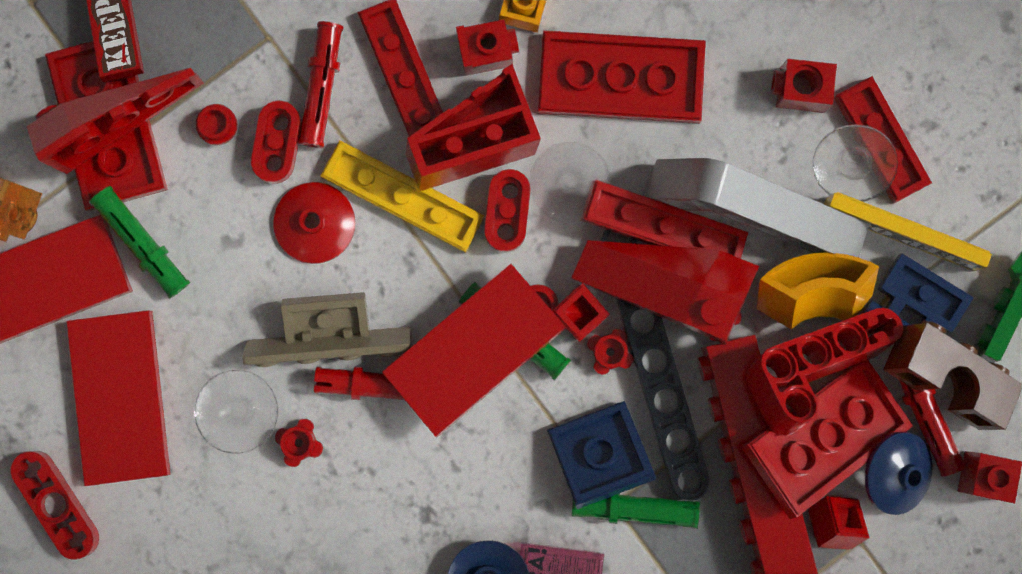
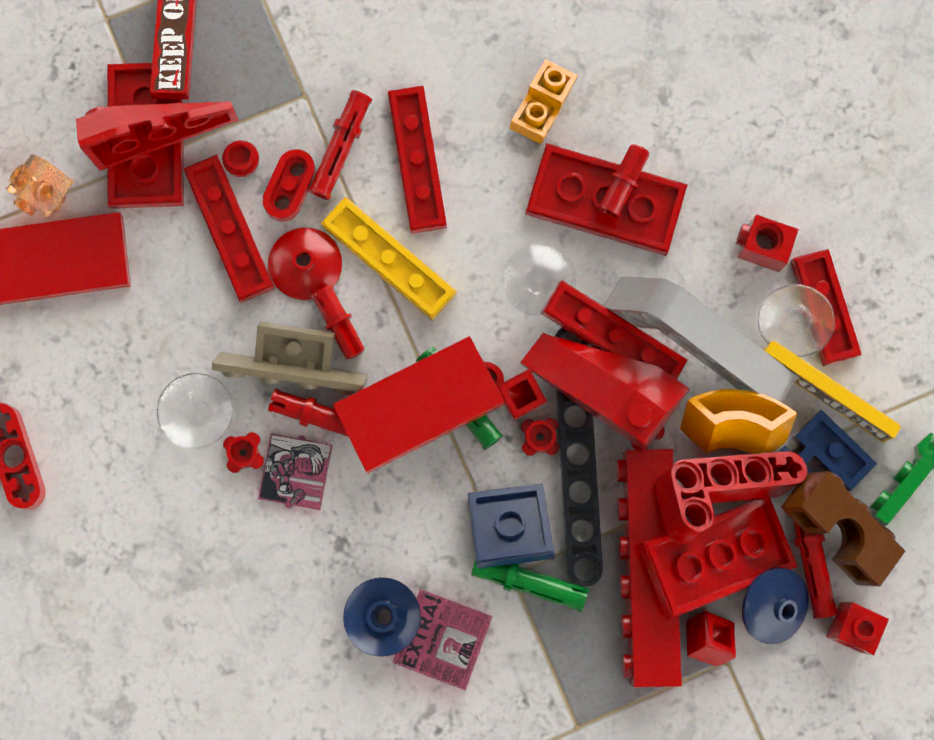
camera: 10 degrees right, 5 degrees down
(118, 398) = (94, 376): red tile -> none
(140, 243) = (148, 244): green pin -> none
(222, 204) = (229, 229): none -> red tile
(359, 450) = (295, 472): none -> piece
(366, 279) = (338, 322): none -> red axle
(475, 135) = (464, 218): red wedge -> none
(480, 60) = (485, 155): red brick -> none
(507, 211) = (476, 292): red plate -> none
(637, 53) = (624, 180): none -> red axle

